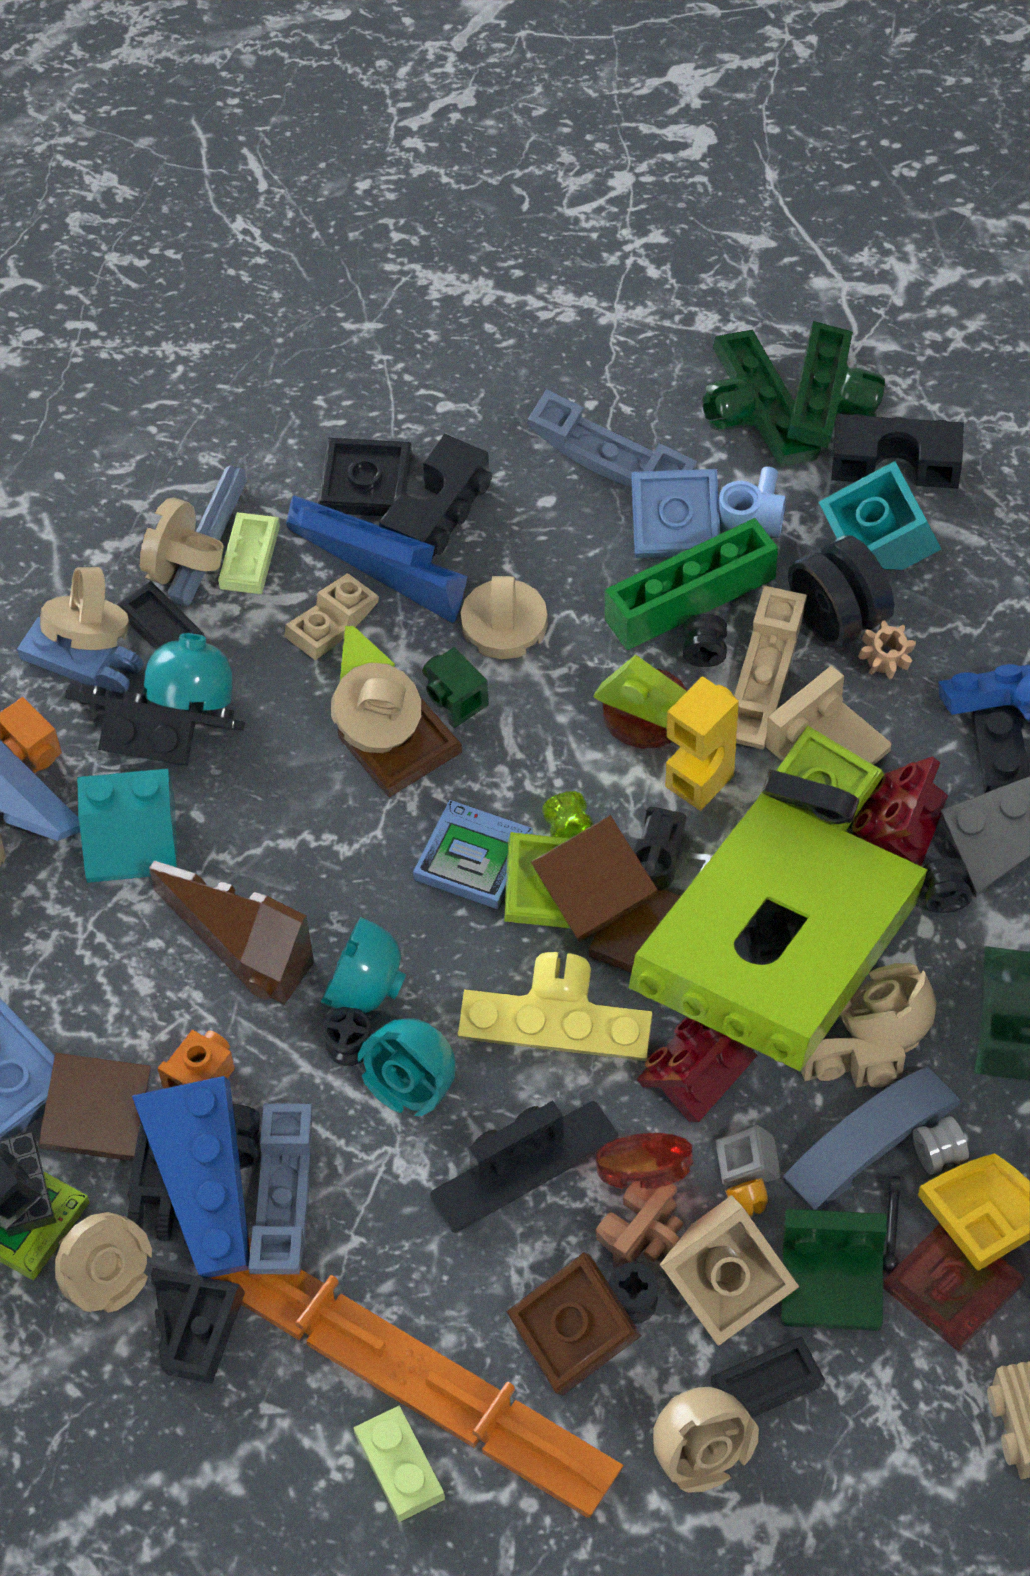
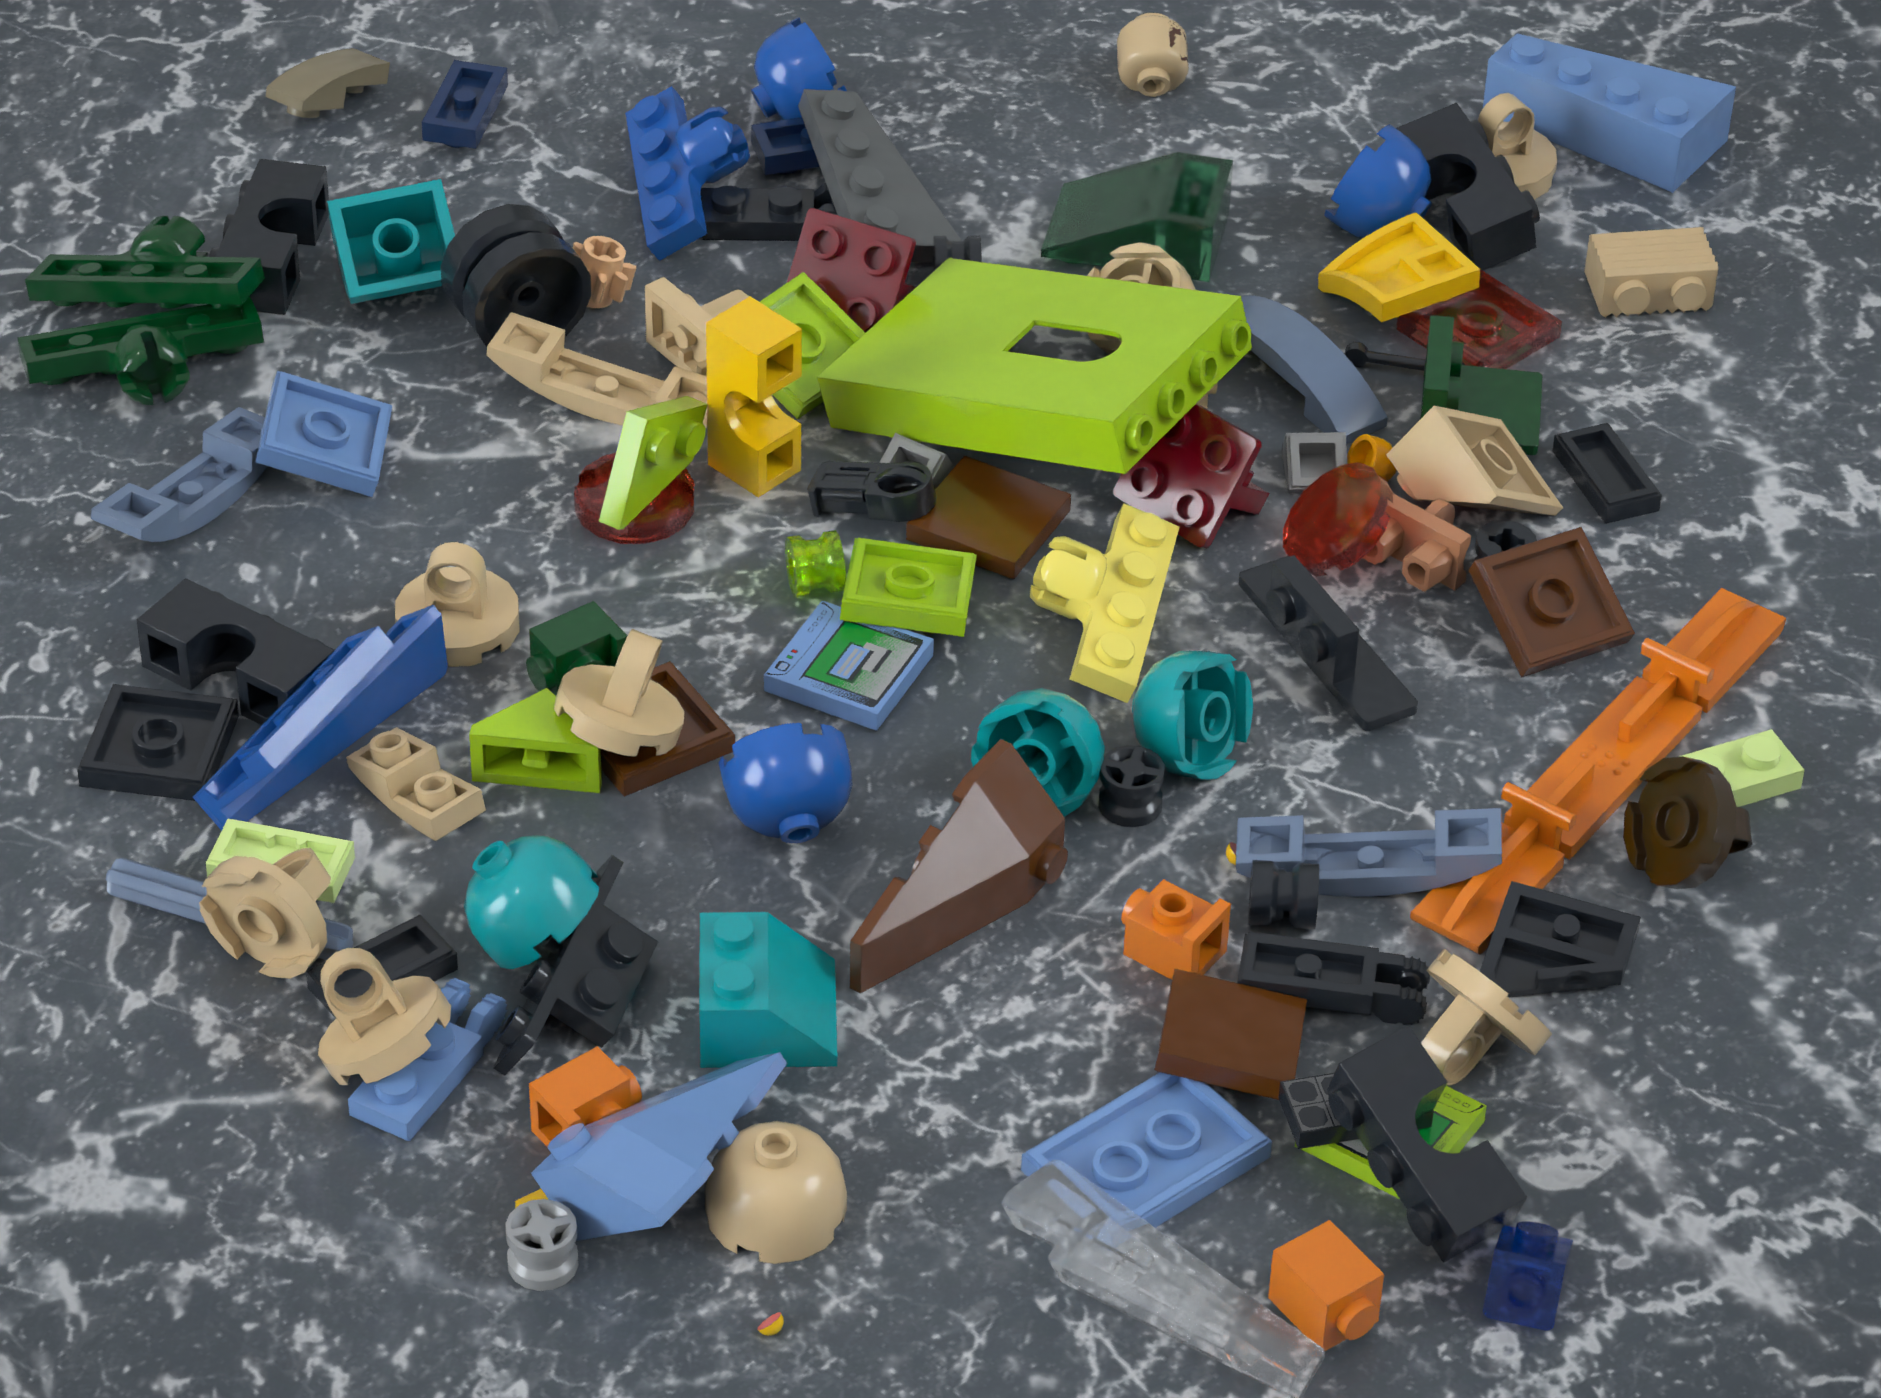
camera: 90 degrees left, 15 degrees down
(199, 1162) = (1328, 900): blue wing -> none
(305, 1418) = (1684, 823): none -> dark brown tile
(317, 817) = (788, 780): none -> blue cylinder
(595, 878) = (931, 524): reddish brown tile -> none
(690, 583) = (461, 417): green brick -> none
(702, 1437) = (1693, 504): tan cylinder -> none
(705, 640) = (546, 424): black wheel -> none
(744, 501) = (340, 358): light blue piece -> none
(818, 798) = (837, 329): black piece -> none
(940, 1145) = (1315, 298): light grey wheel -> none

